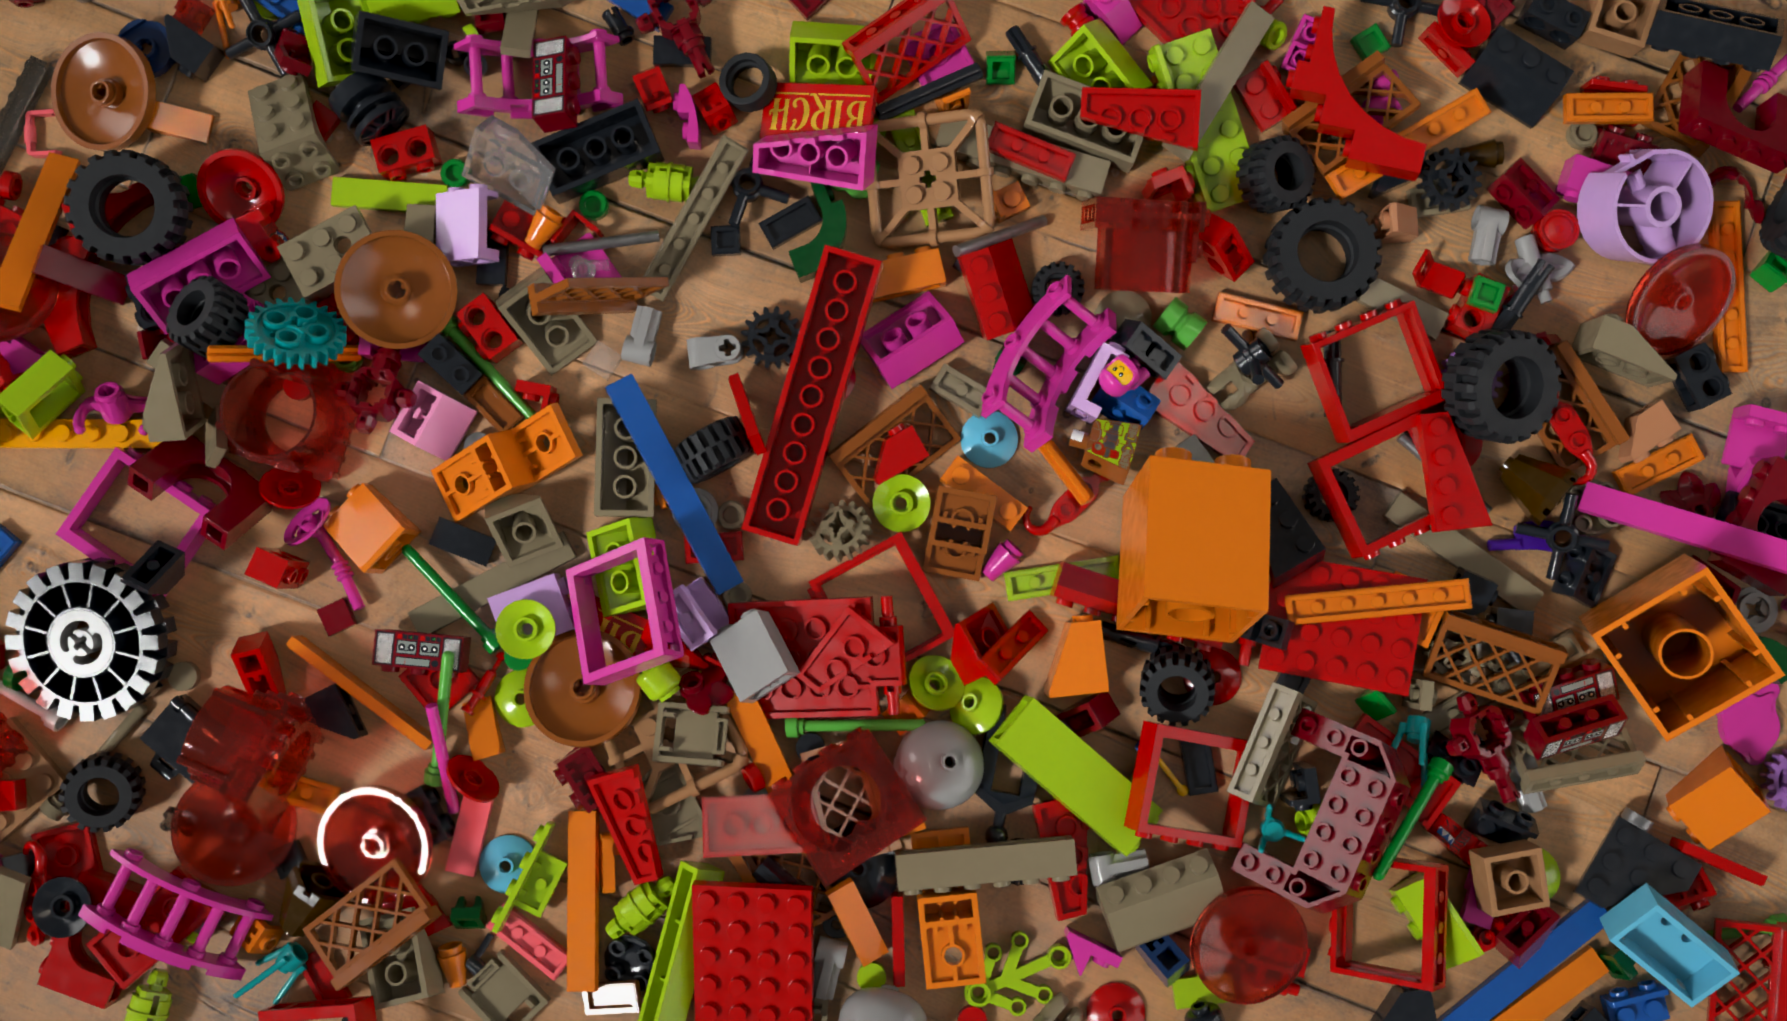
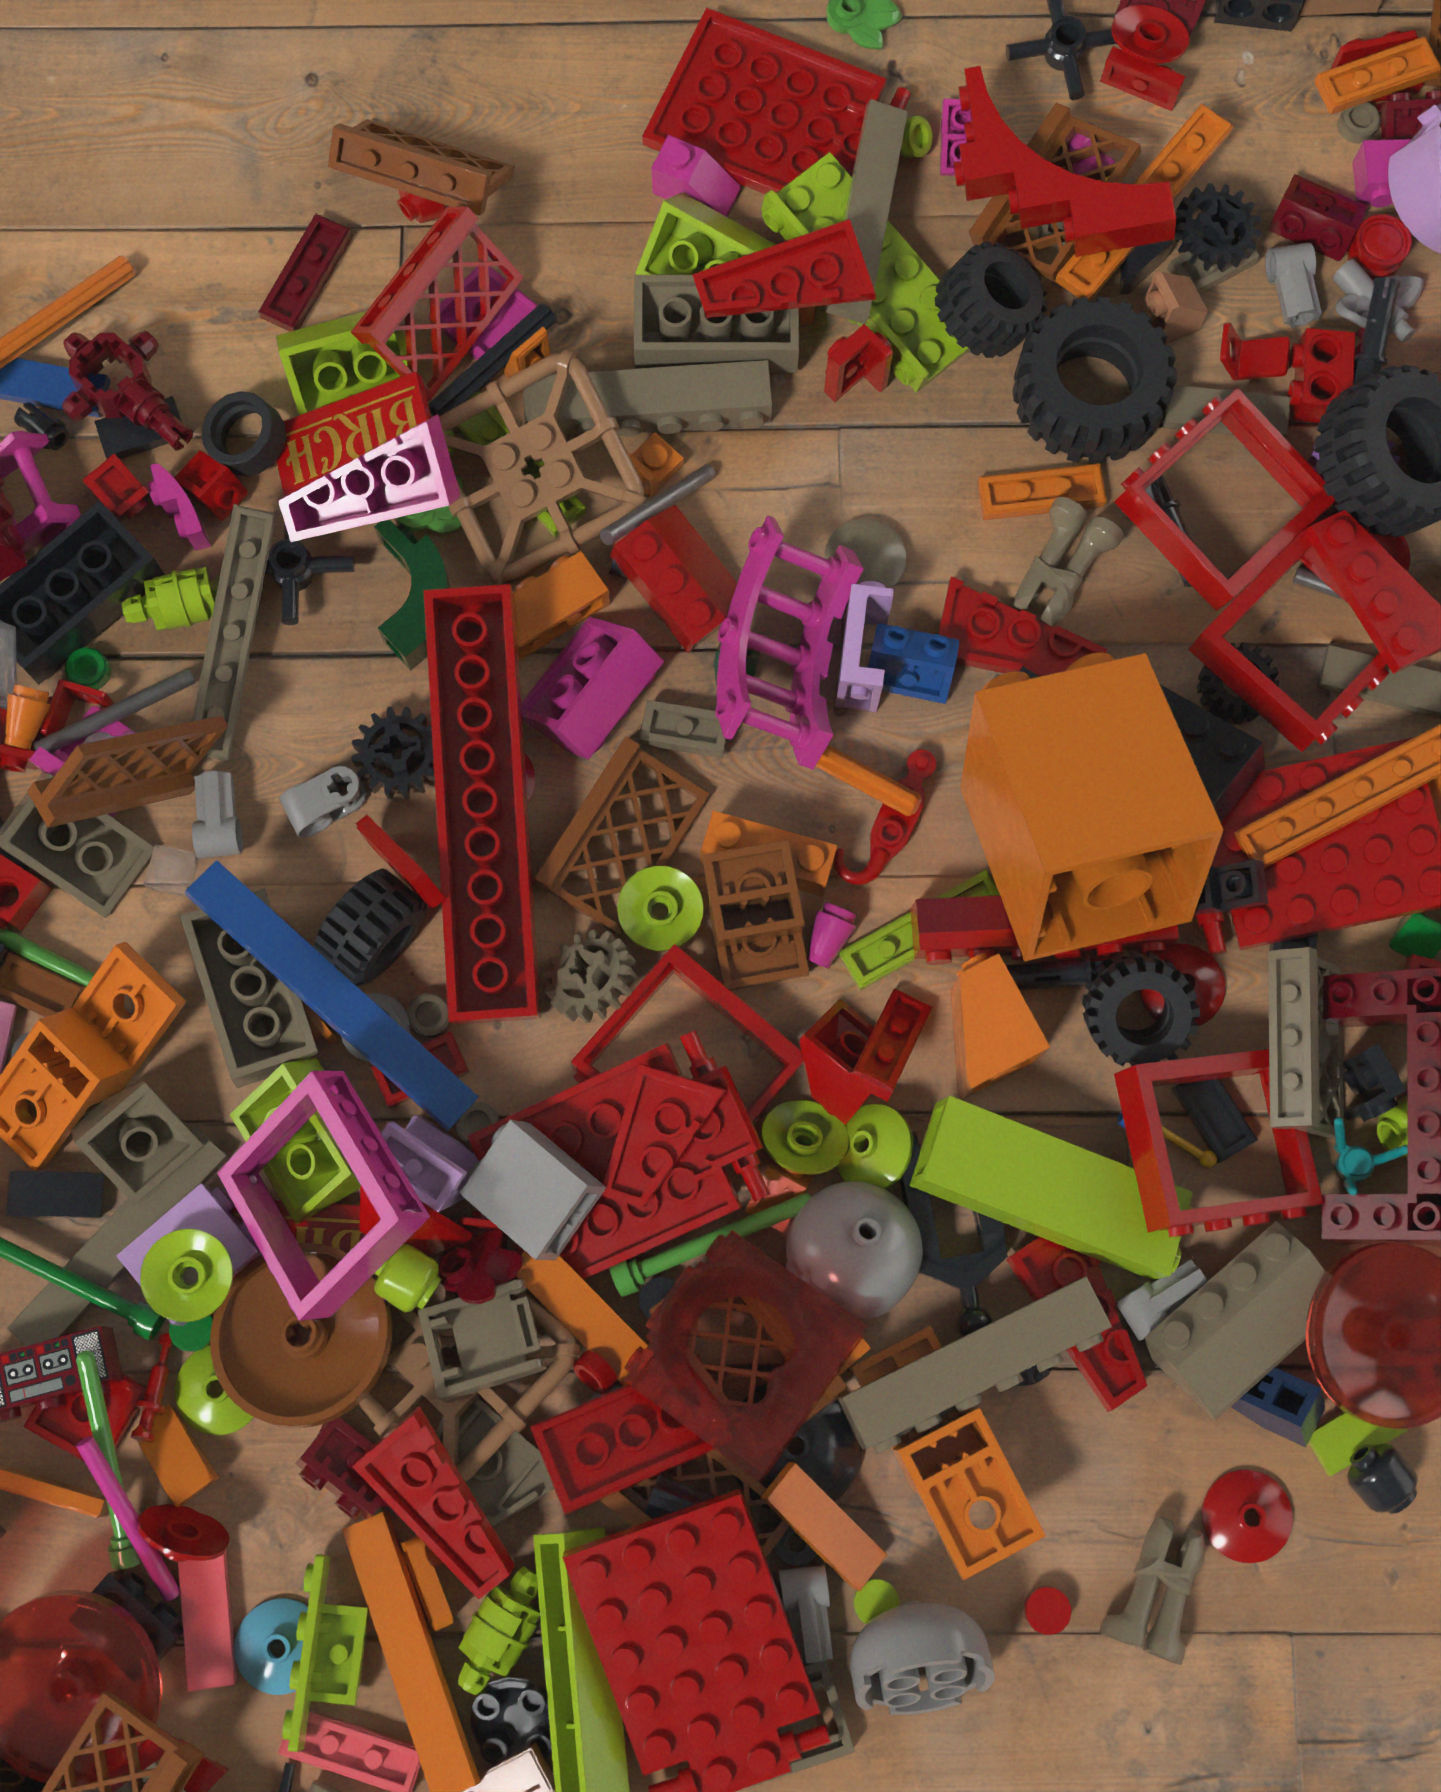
camera: 20 degrees left, 10 degrees down
(468, 917) = (246, 1748): dark green tile -> none
(534, 391) = (89, 944): red bracket -> none
(725, 240) = (287, 650): black tile -> none
(790, 222) = (367, 595): black tile -> none
(898, 452) = (630, 837): red slope -> none
(898, 939) = (893, 1529): red tile -> none
(980, 451) = (743, 800): medium azure dish -> none
(1000, 67) = (575, 302): green slope -> none
(1013, 975) = (1078, 1519): lime plant -> none
(1027, 53) = (602, 270): black axle -> none
(1030, 152) = (657, 384): red tile -> none
(1057, 271) = (739, 539): black tyre -> none
(1076, 18) = (648, 204): red wheel -> none
(1084, 946) = (1161, 1439): dark pink slope -> none
(1089, 714) = (1039, 1094): dark red slope -> none
(1108, 448) = (913, 728): torso -> none
(1122, 376) = (894, 619): dark pink piece -> none
(1145, 242) = (852, 436): clear red hose -> none
(1147, 348) = (918, 580): black brick -> none
(1180, 323) = (943, 534): bright green wheel -> none
(1225, 248) = (959, 413): red brick -> none
(1252, 356) = (1057, 536): black bar -> none
(1265, 96) = (935, 215): red bracket -> none
(1370, 41) = (1039, 103): green tile -> none
(1486, 153) = (1254, 181): dark brown cone -> none
(1486, 294) = (1327, 349): green tile -> none
(1516, 76) = (1246, 78): black slope -> none

